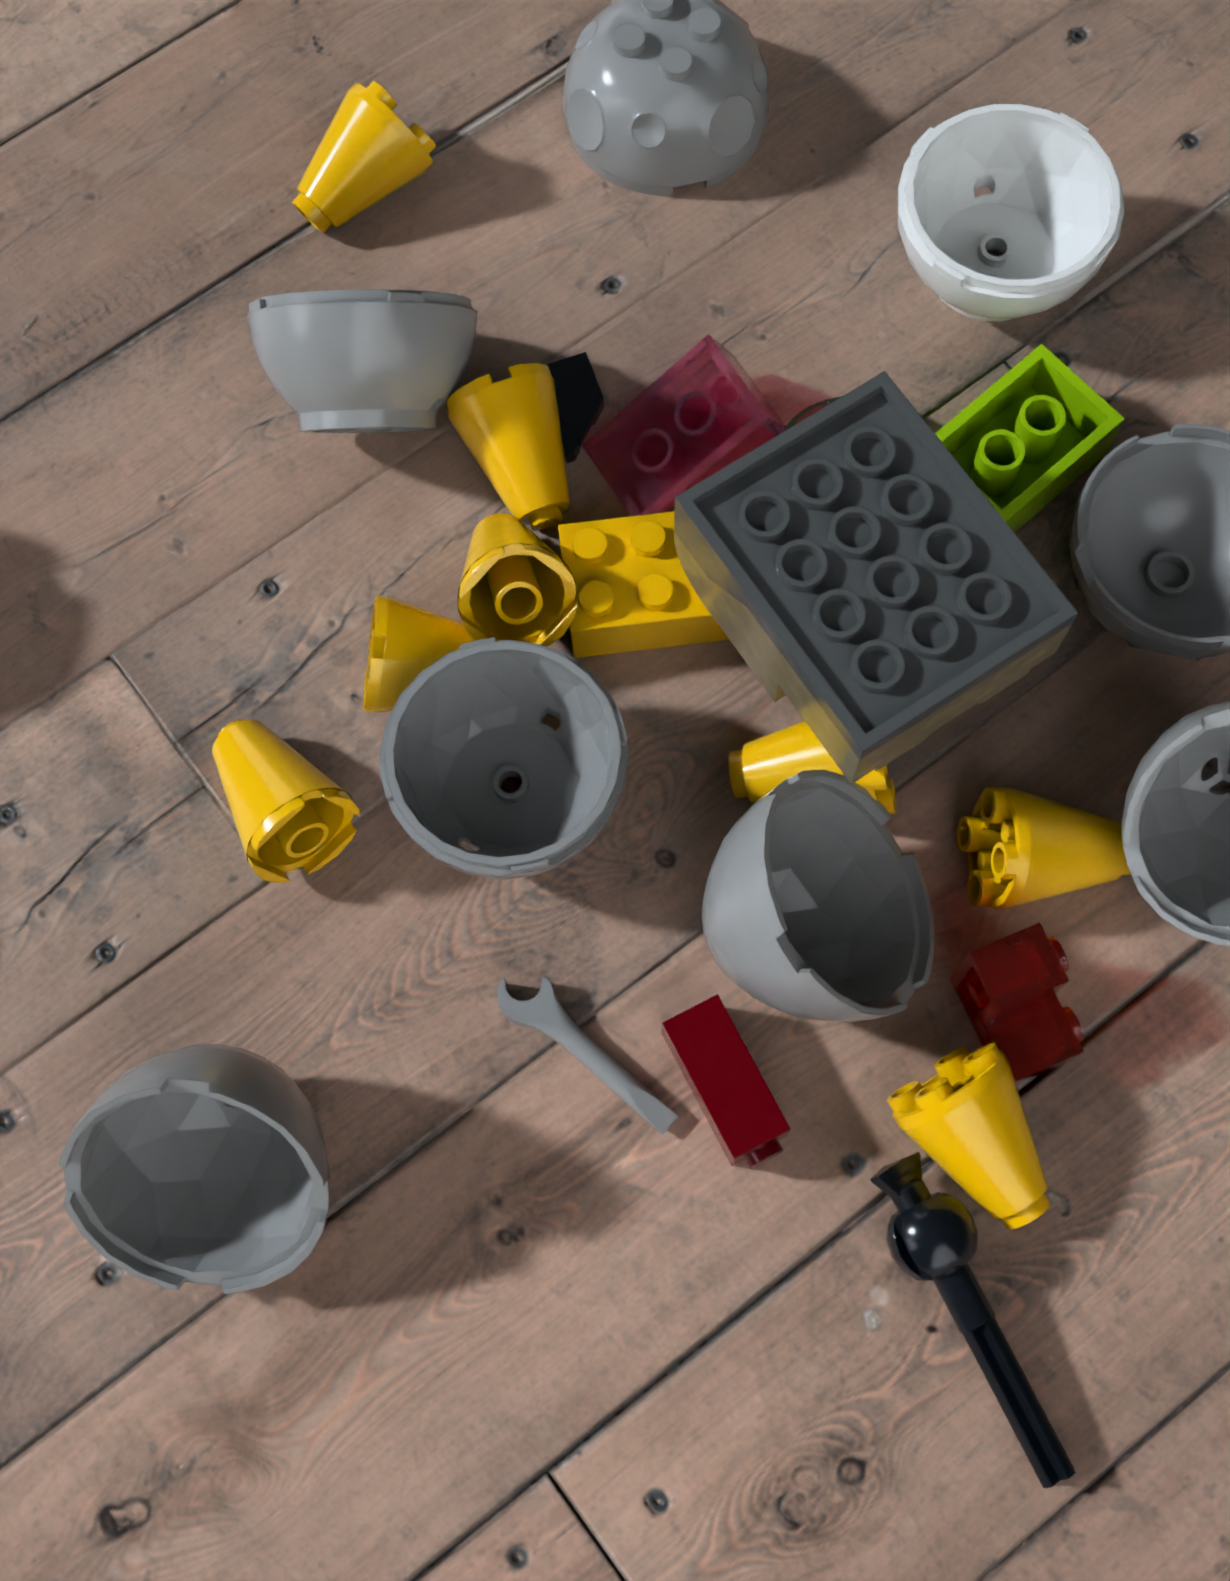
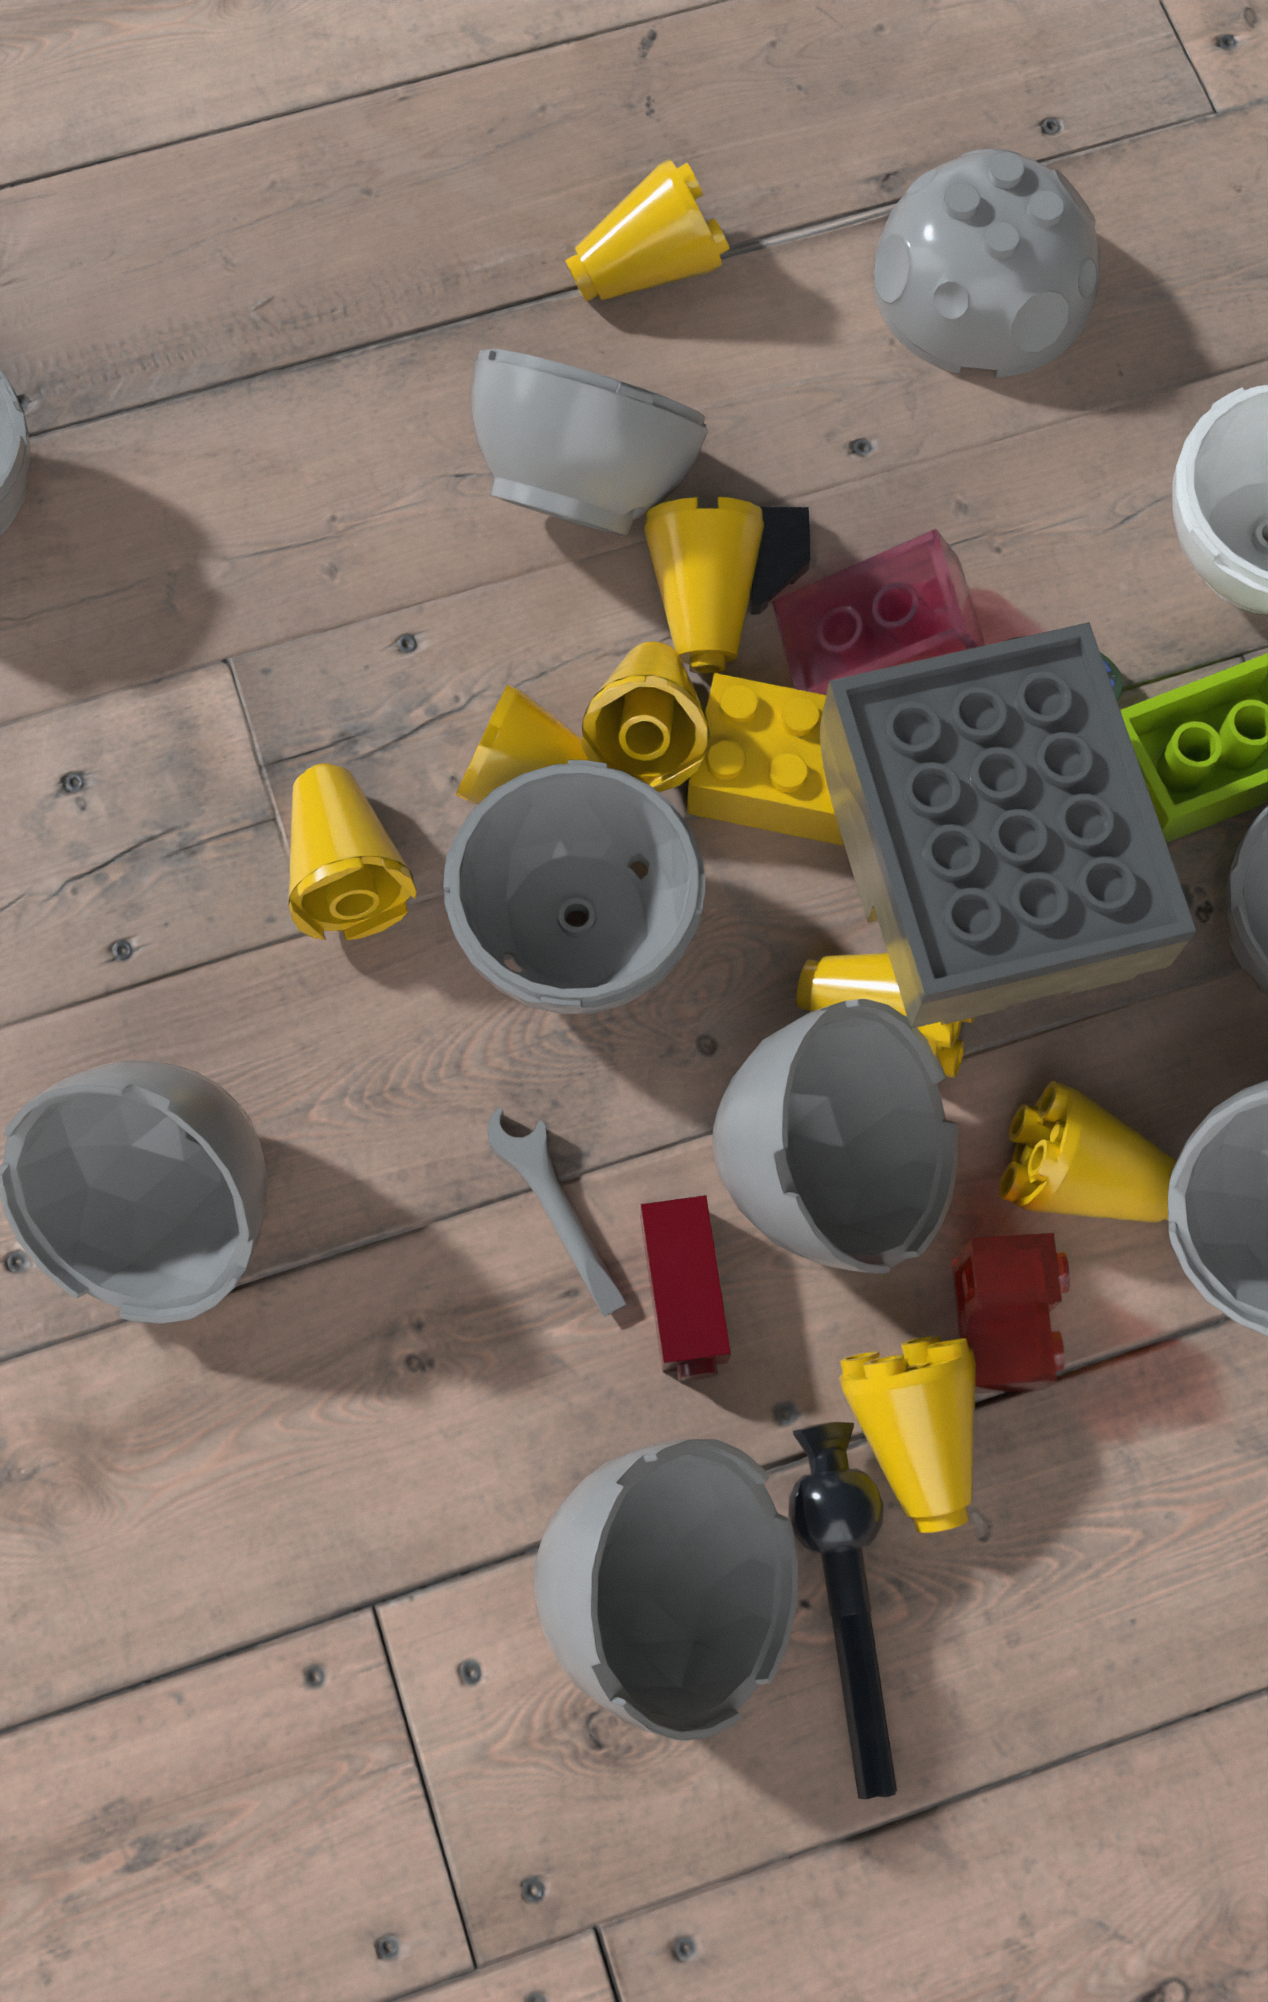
camera: 15 degrees right, 0 degrees up
(814, 1364) = (669, 1586): none -> light grey piece

